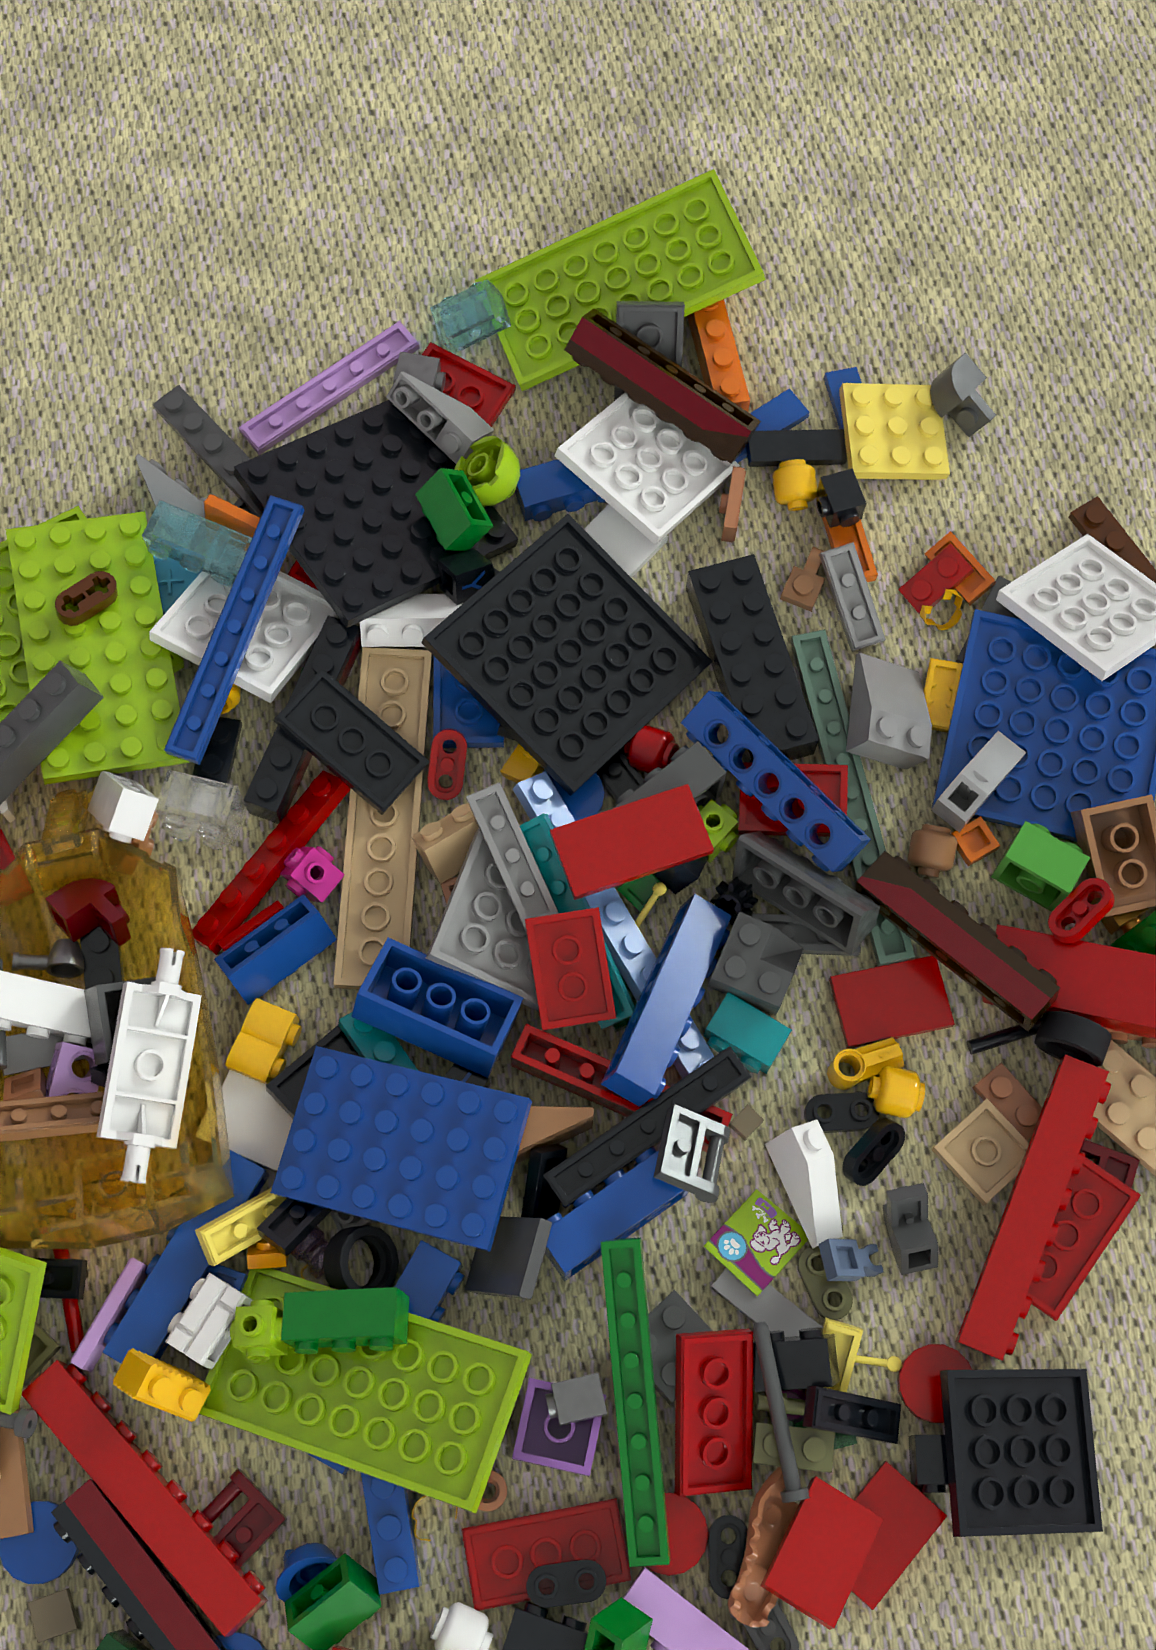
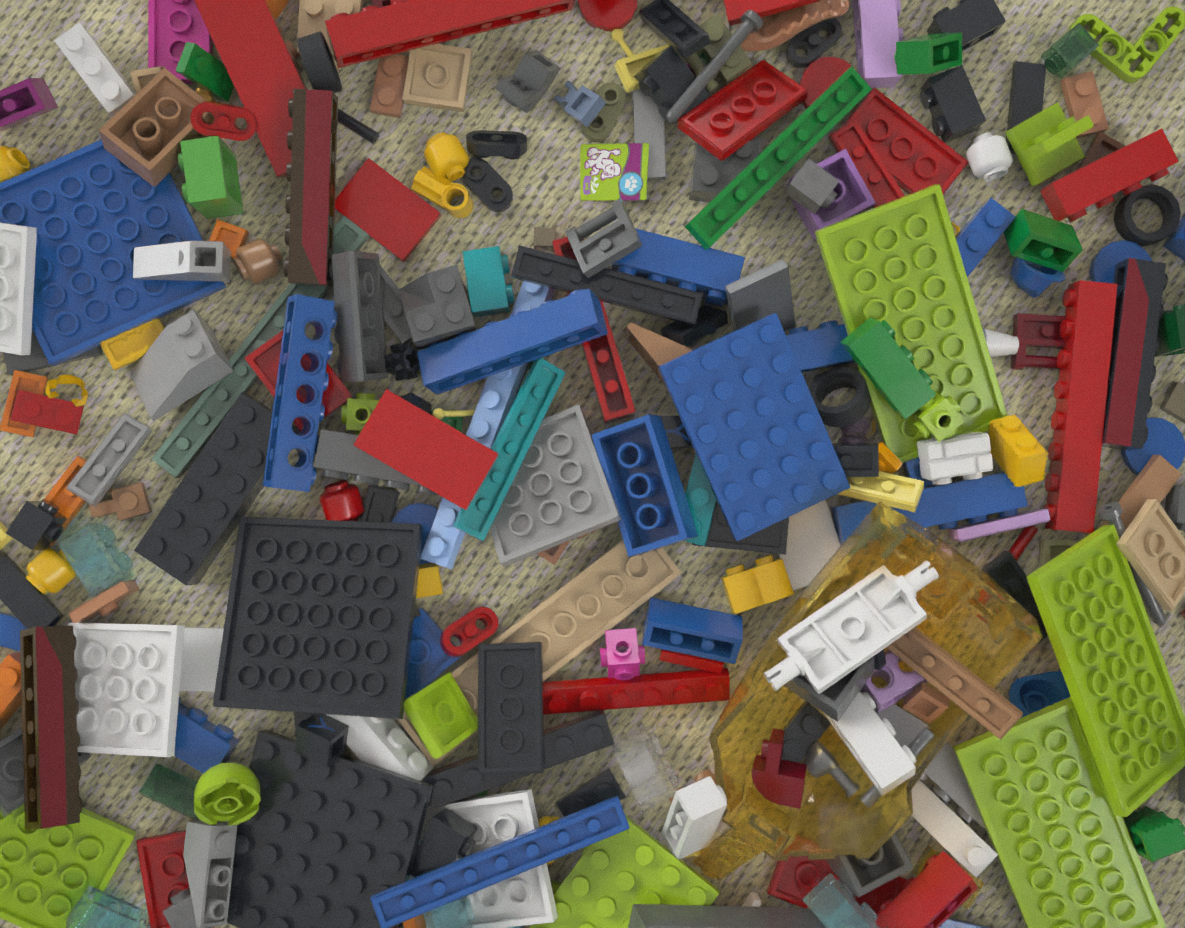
camera: 135 degrees left, 15 degrees up
(278, 1468) = (1000, 343): none -> white cone
(293, 601) = (444, 842): none -> black brick
(397, 680) = (441, 715): none -> lime bracket
(446, 842) = (521, 581): tan brick -> none
(453, 510) = (279, 789): green brick -> none
(511, 853) = (502, 523): light grey plate -> none
(533, 438) = (170, 790): none -> clear green plate
(552, 1491) = (867, 161): none -> red tile
(566, 1584) = (908, 122): black plate -> none
(570, 968) = (546, 419): red plate -> none
(774, 525) = (97, 558): none -> clear light blue brick
(809, 1178) = (548, 168): white slope -> none

